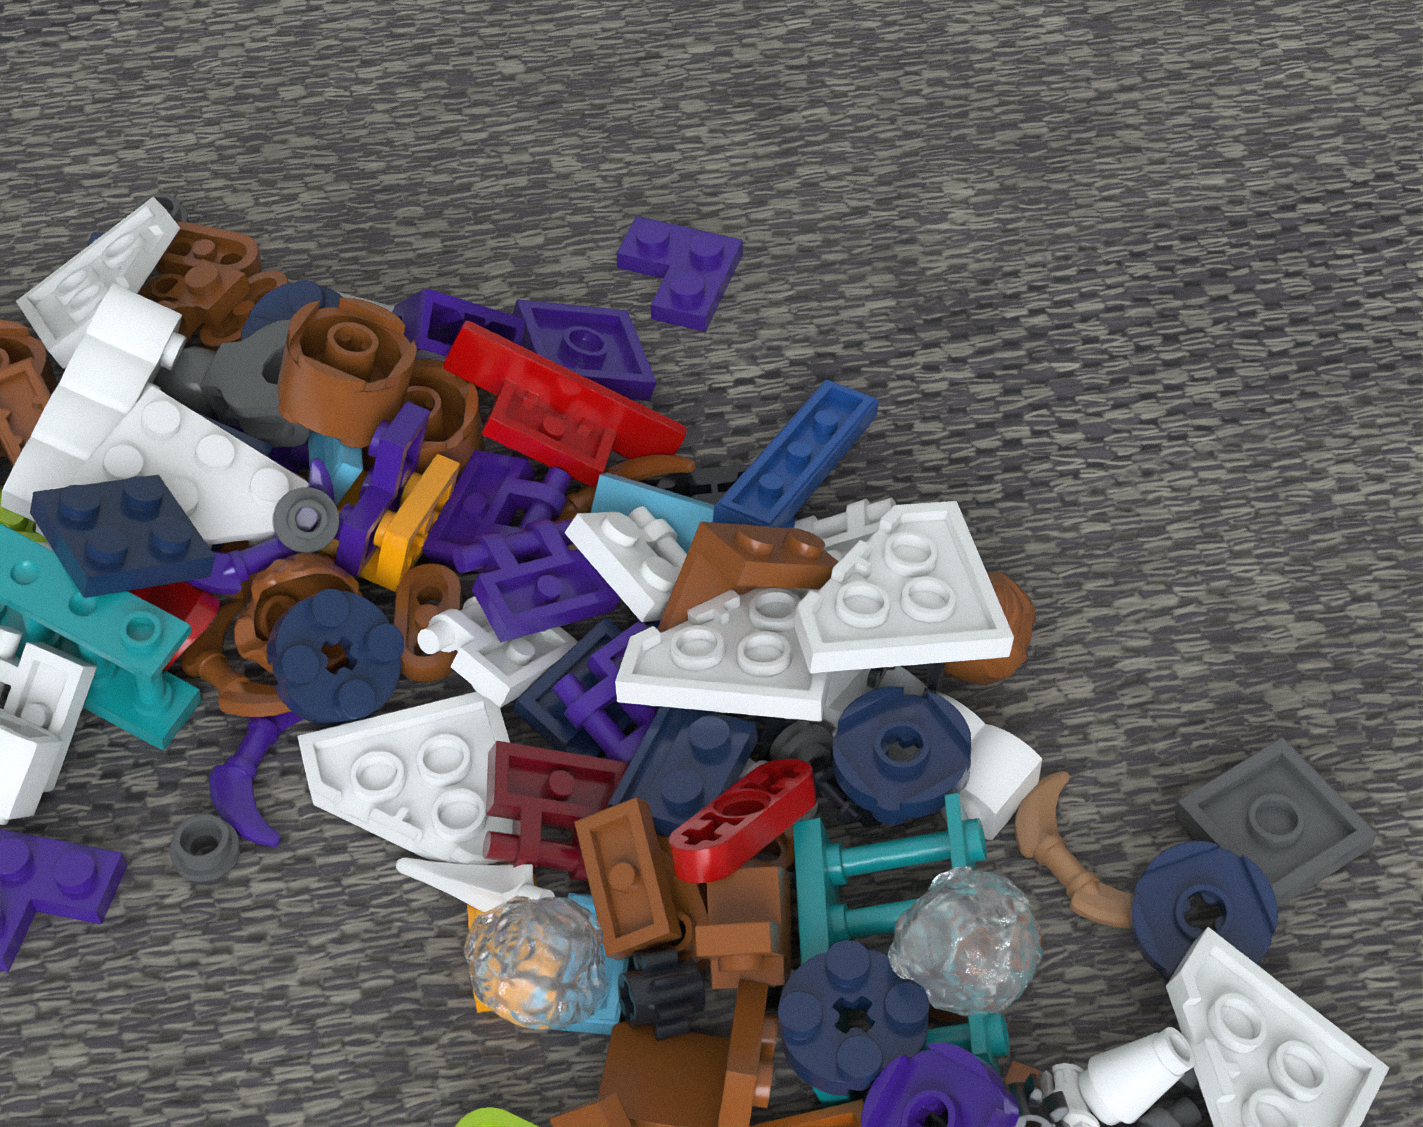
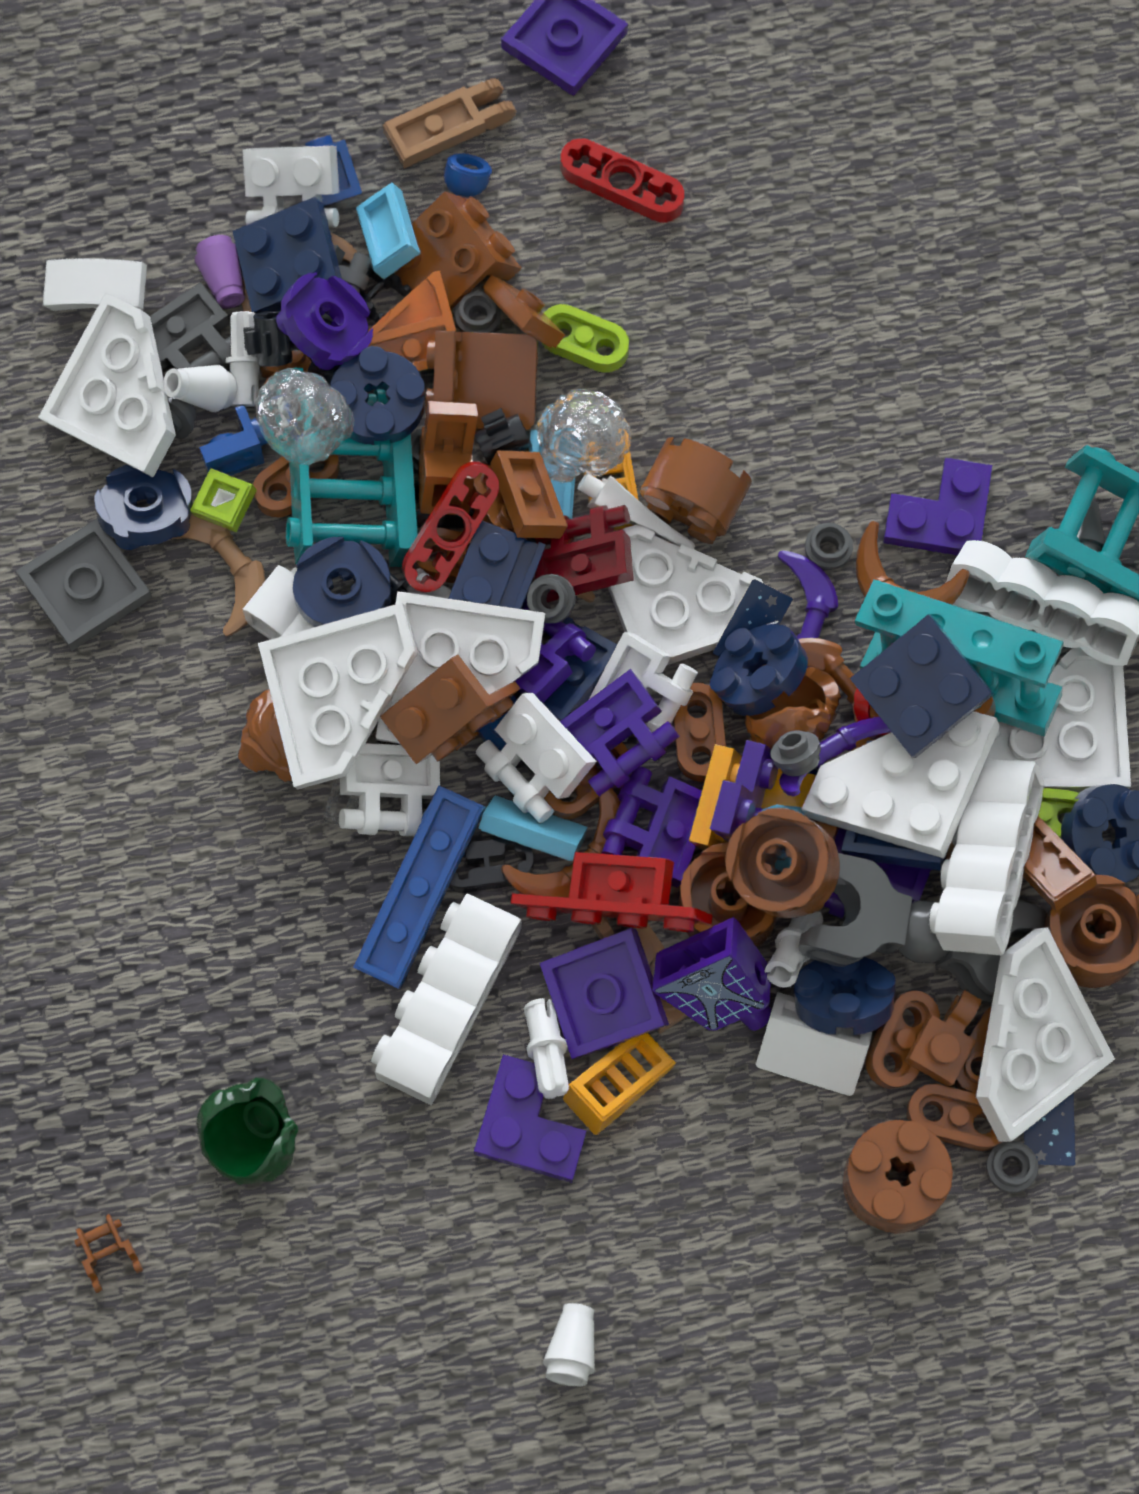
camera: 175 degrees right, 20 degrees up
(105, 735) = (870, 568): none -> dark orange piece
(285, 196) = (907, 1148): none -> dark orange brick
(321, 740) = (757, 608): none -> dark blue sticker
(382, 892) = (695, 488): none -> dark orange brick
(581, 274) = (589, 1109): none -> light orange slope
(607, 733) = (538, 593): none -> dark grey plate
(648, 94) = (572, 1347): none -> white cone
(654, 309) = (546, 1048): none -> white axle
(765, 363) = (447, 999): none -> white brick
(992, 241) = (247, 1132): none -> dark green hair
(1073, 993) = (238, 451): none -> blue bracket
(1083, 915) = (223, 500): none -> lime tile
(1119, 181) = (101, 1231): none -> dark orange piece

